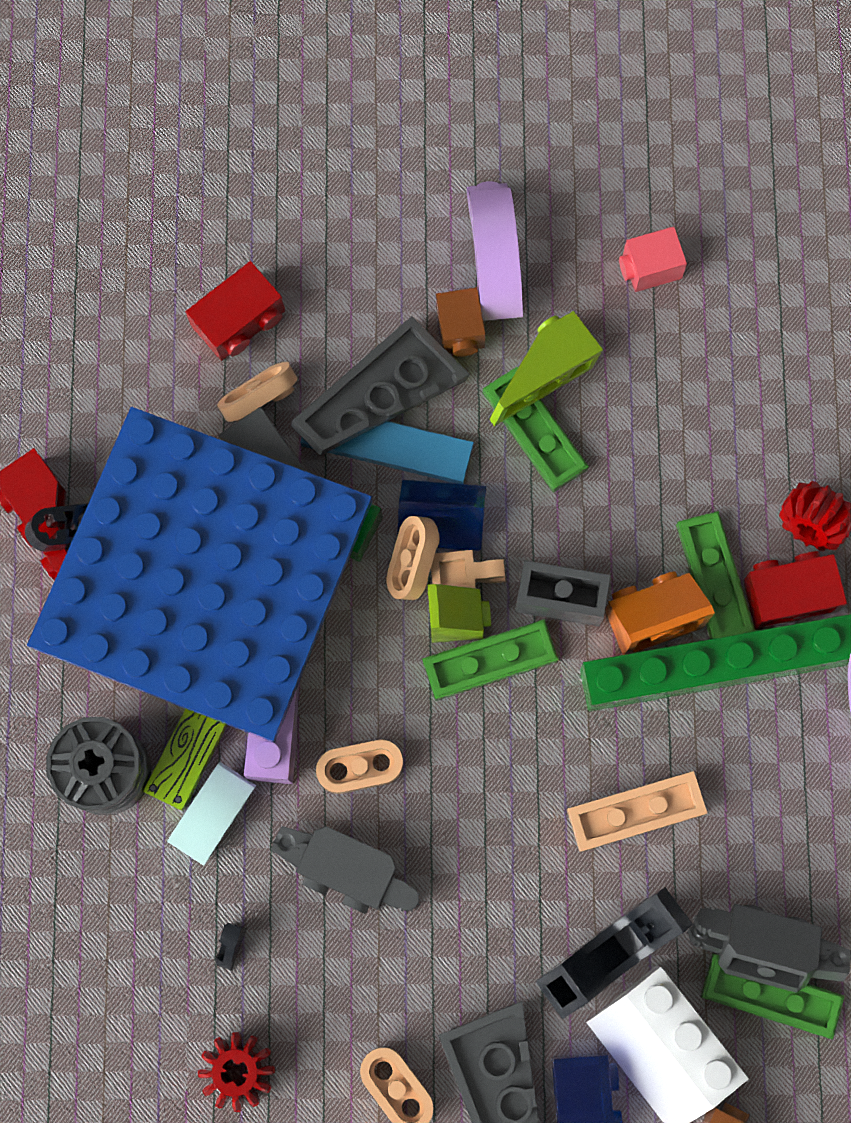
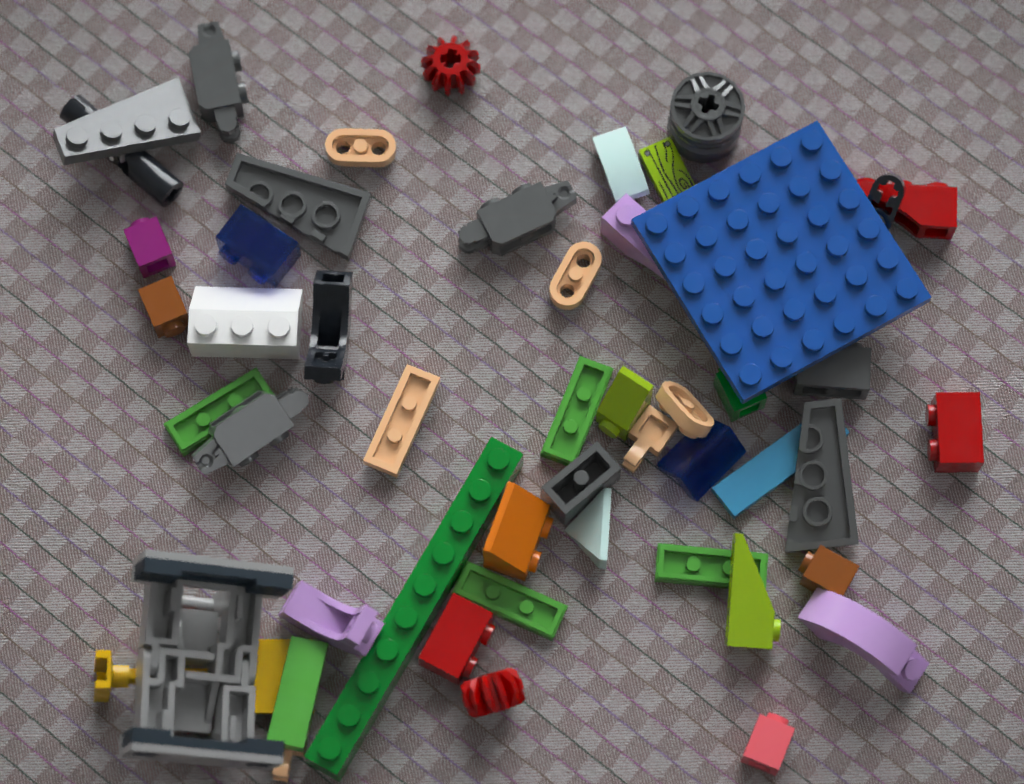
camera: 125 degrees right, 5 degrees down
(230, 944) = (531, 119): black tile -> none
(271, 384) = (885, 402): light nougat plate -> none
(591, 550) = (591, 528): none -> light aqua slope

